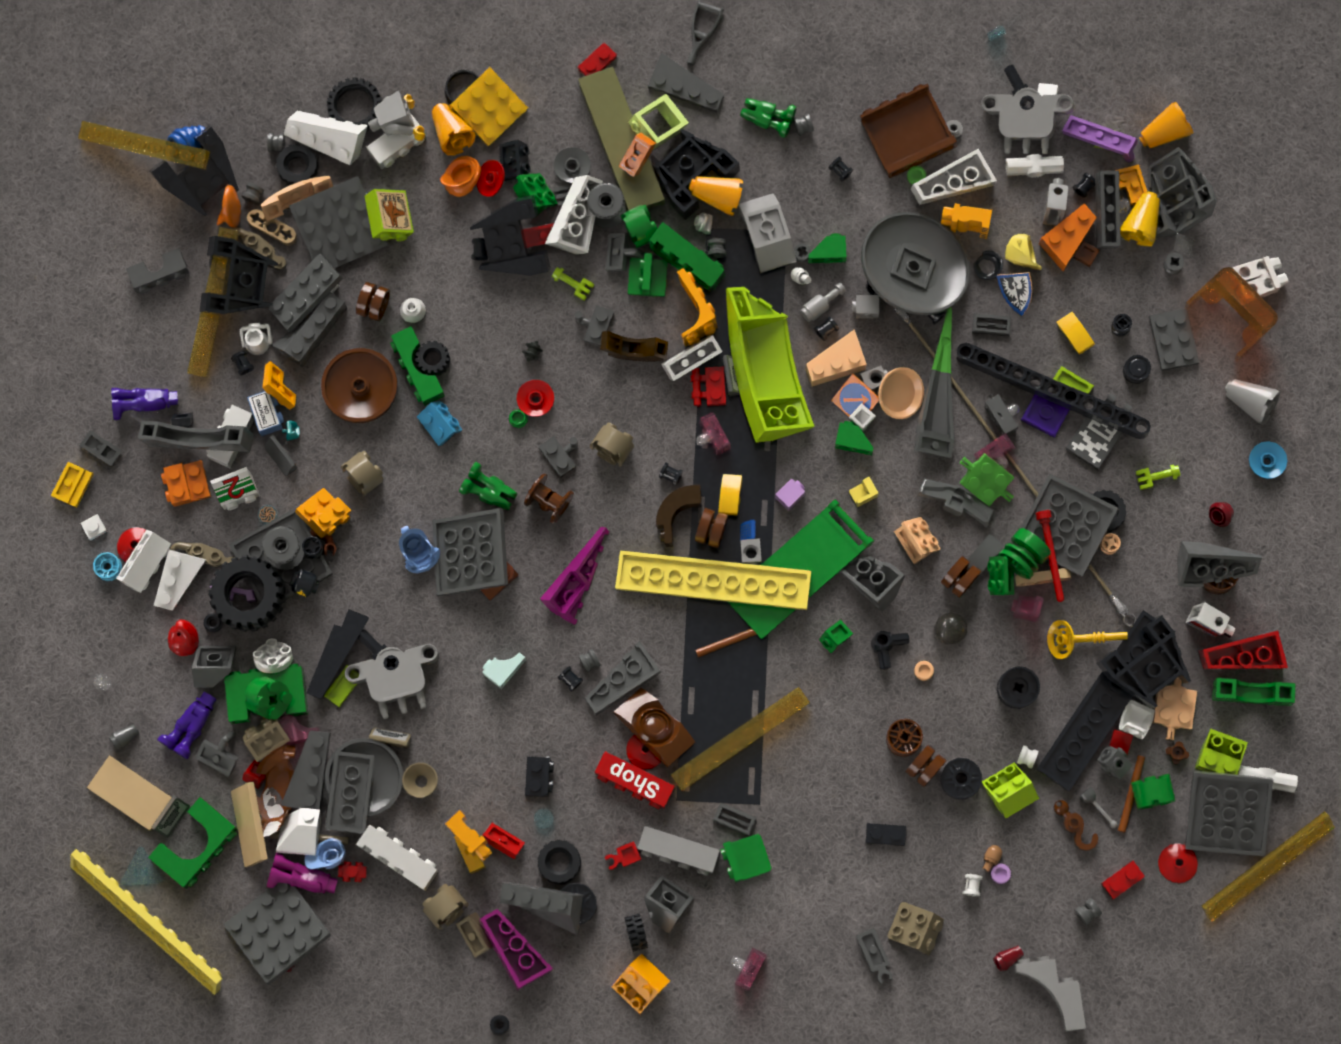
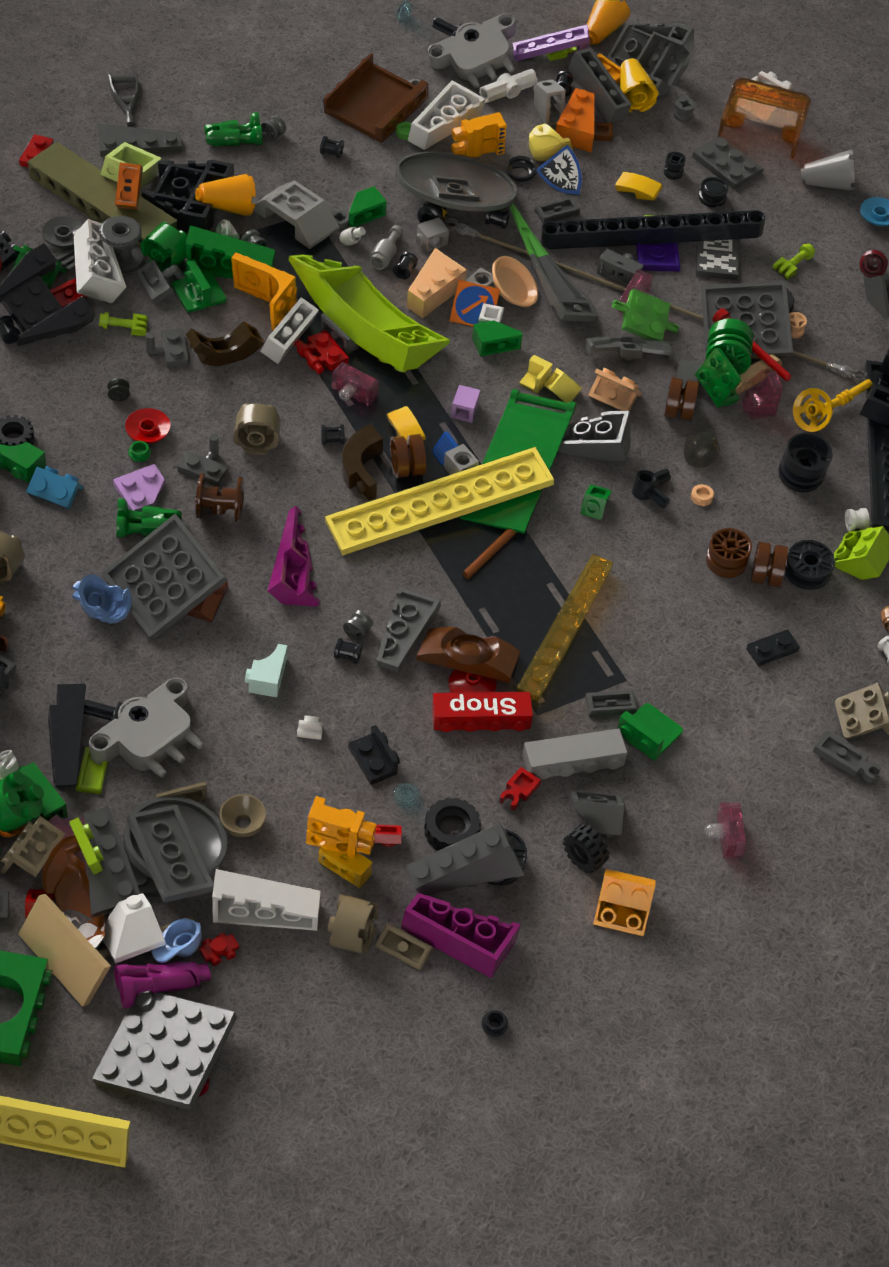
camera: 40 degrees left, 25 degrees down
(297, 753) = (92, 854): none -> lime plate
(501, 453) = (140, 487): none -> lavender plate
(508, 729) = (310, 728): none -> white plate
(878, 514) = (562, 386): none -> light yellow panel

